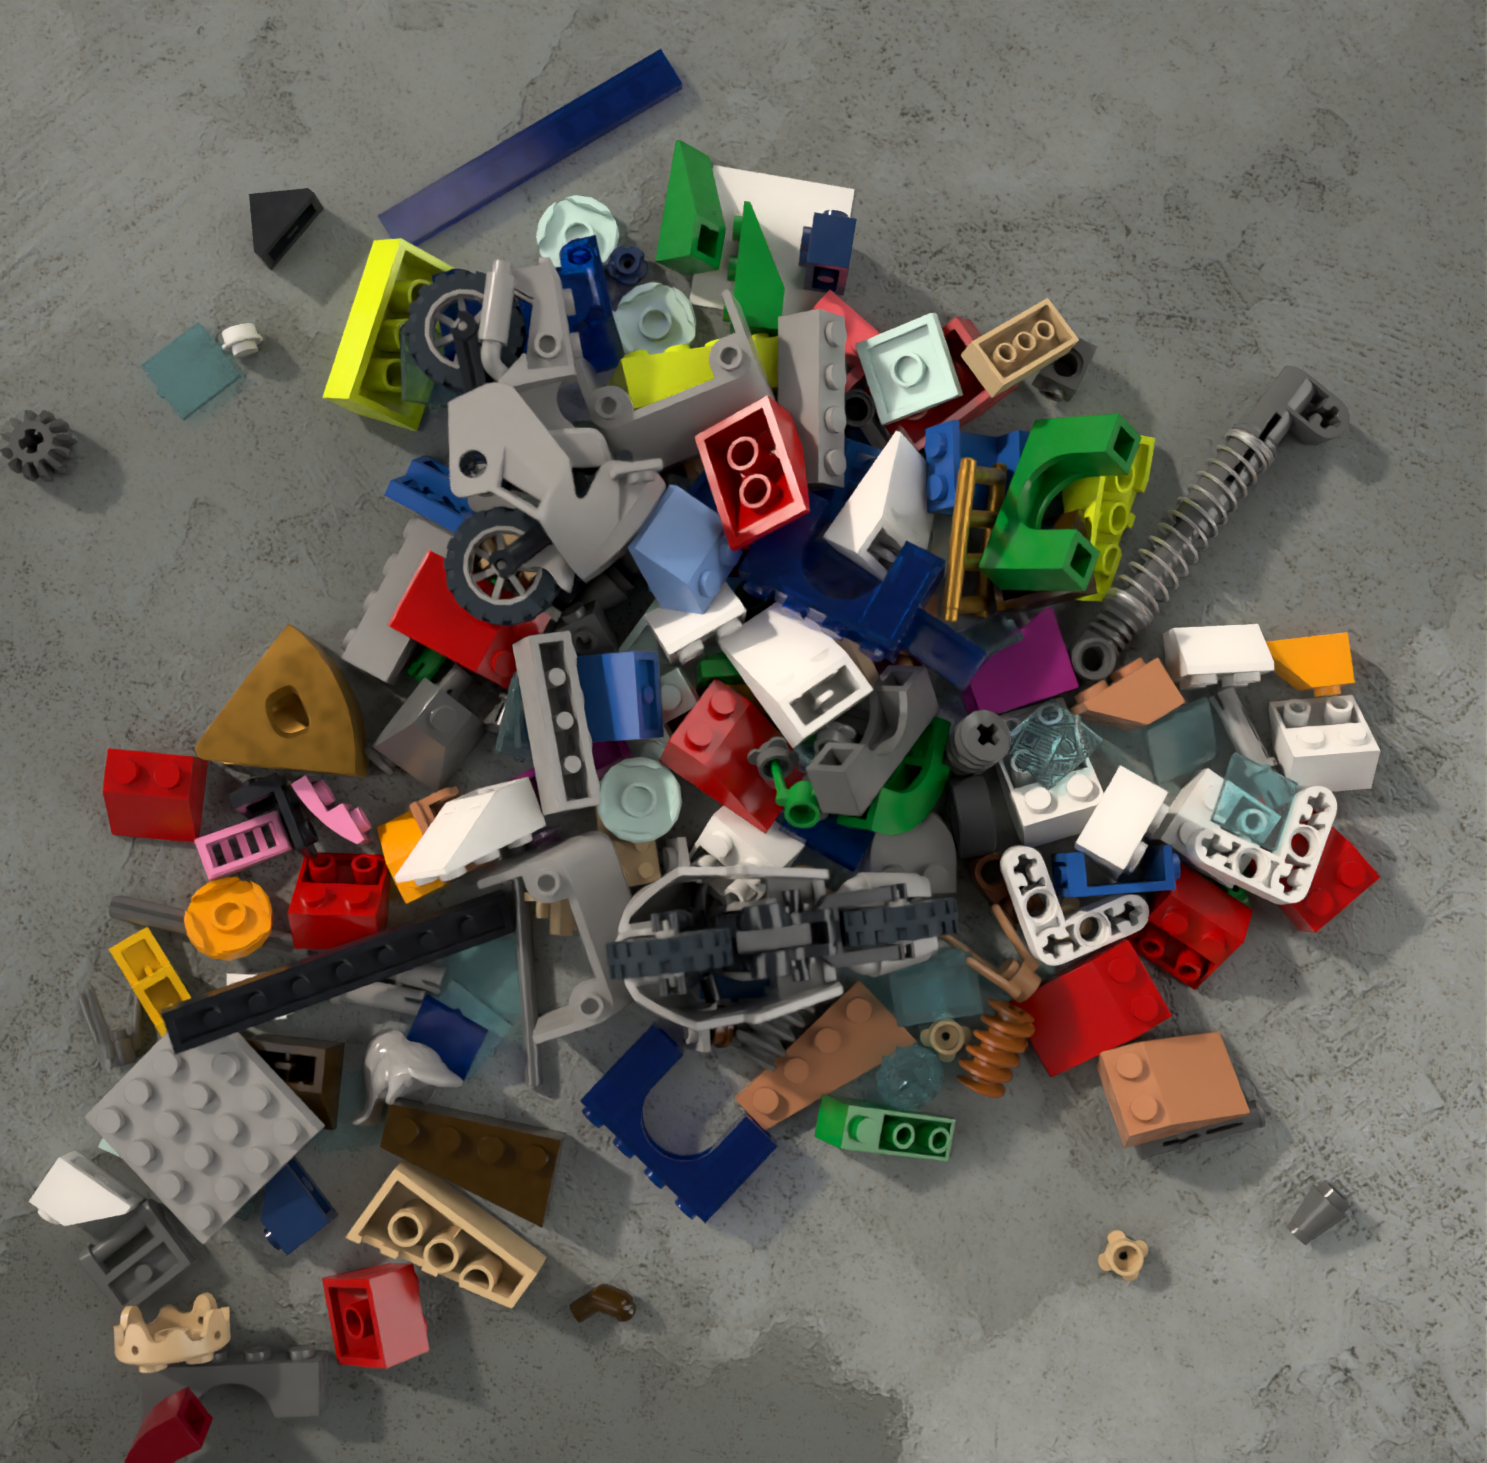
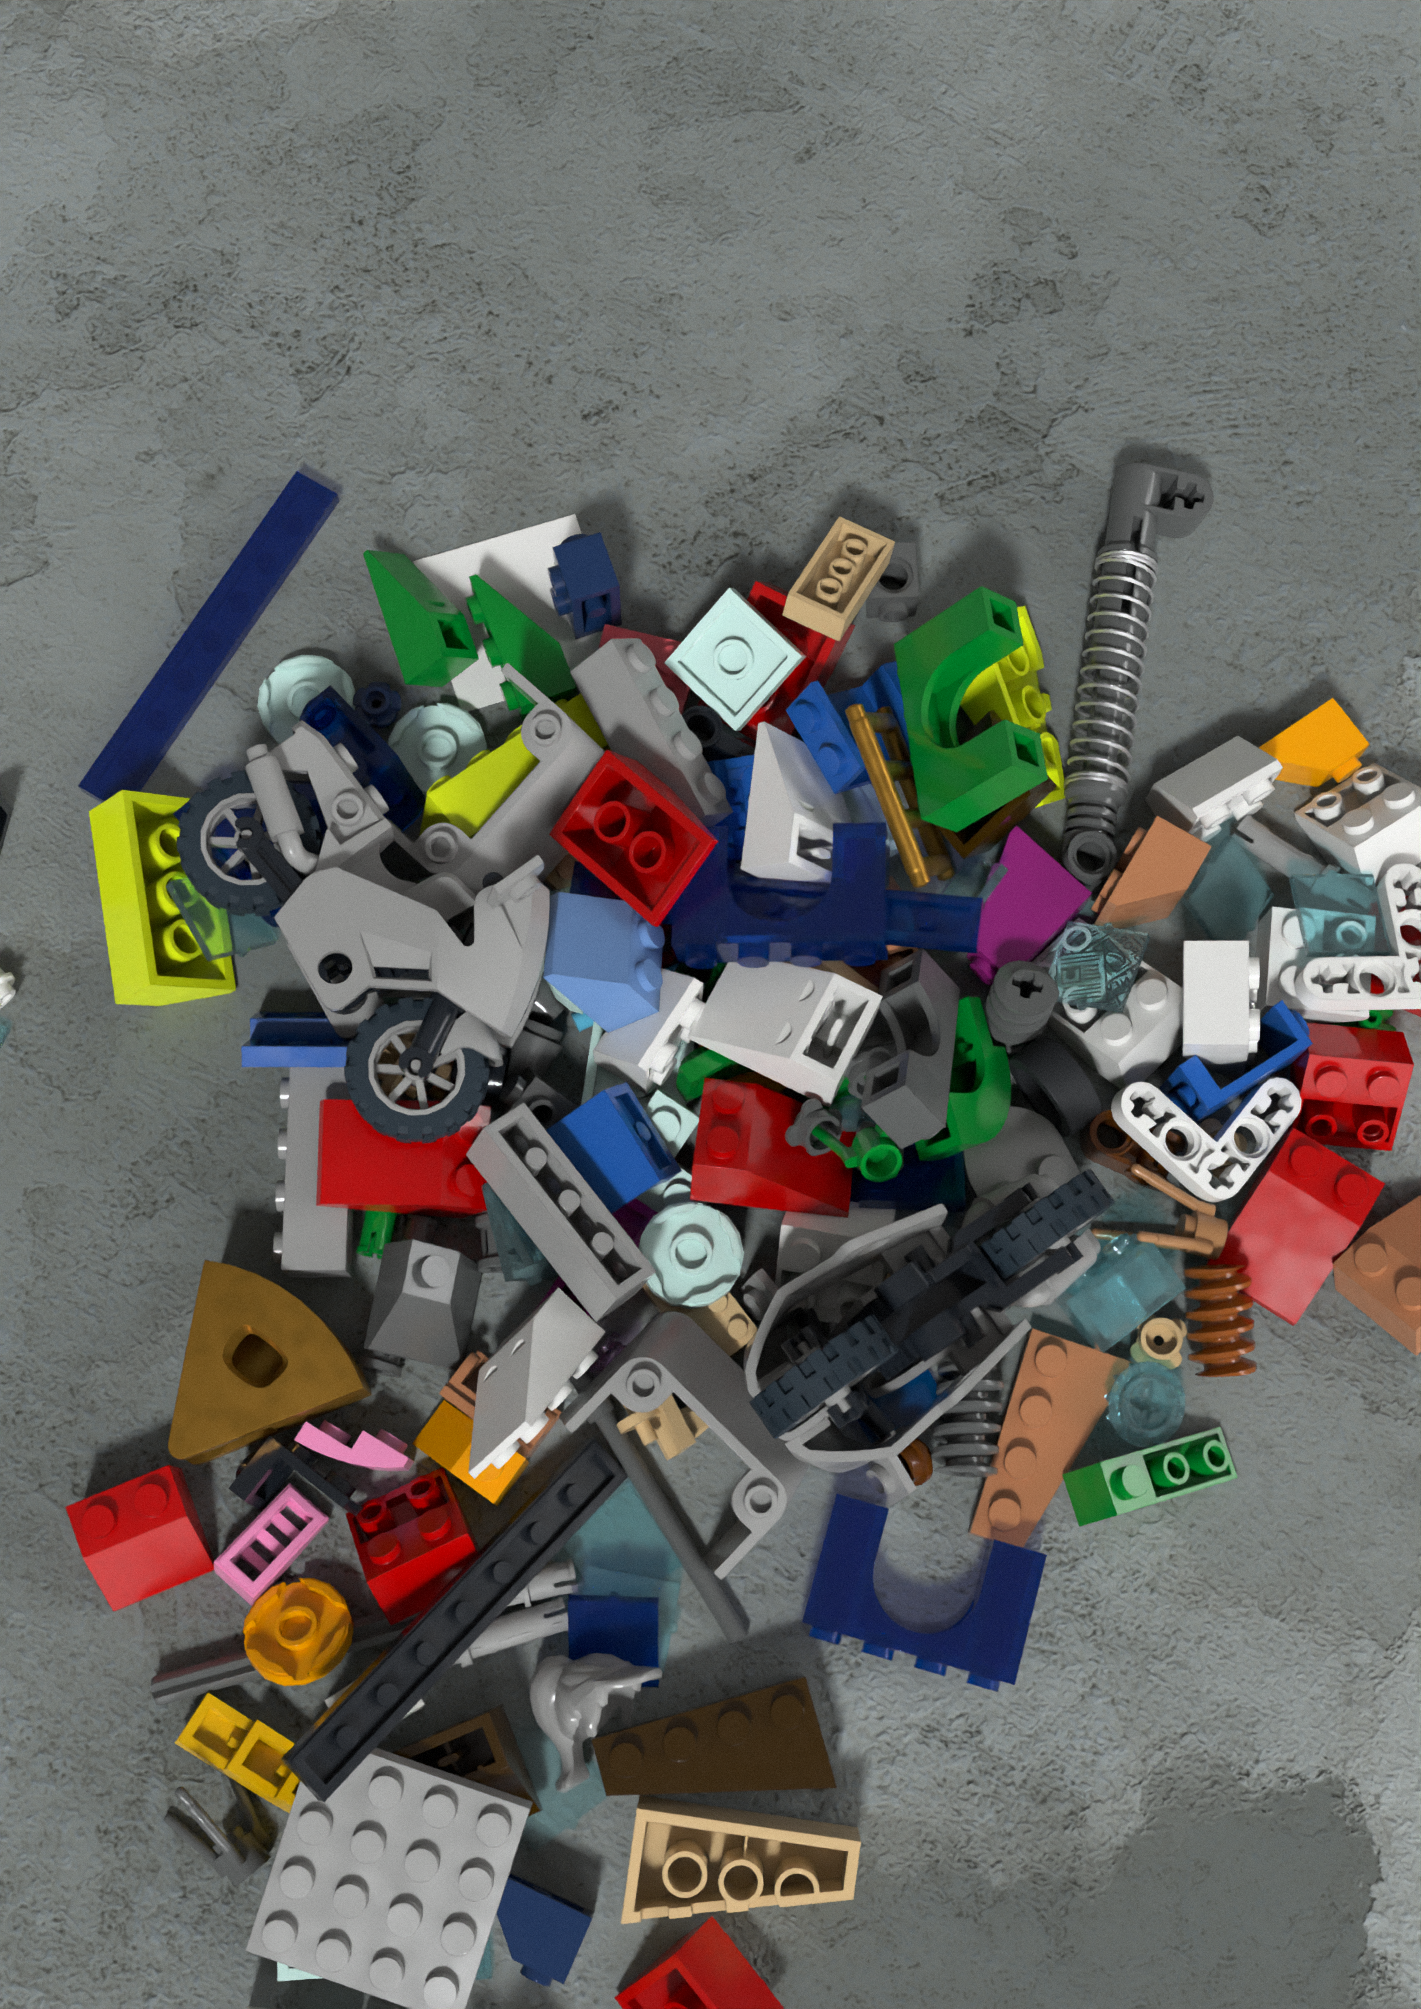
camera: 25 degrees left, 10 degrees down
(605, 1299) = (951, 1840): dark brown arm -> none

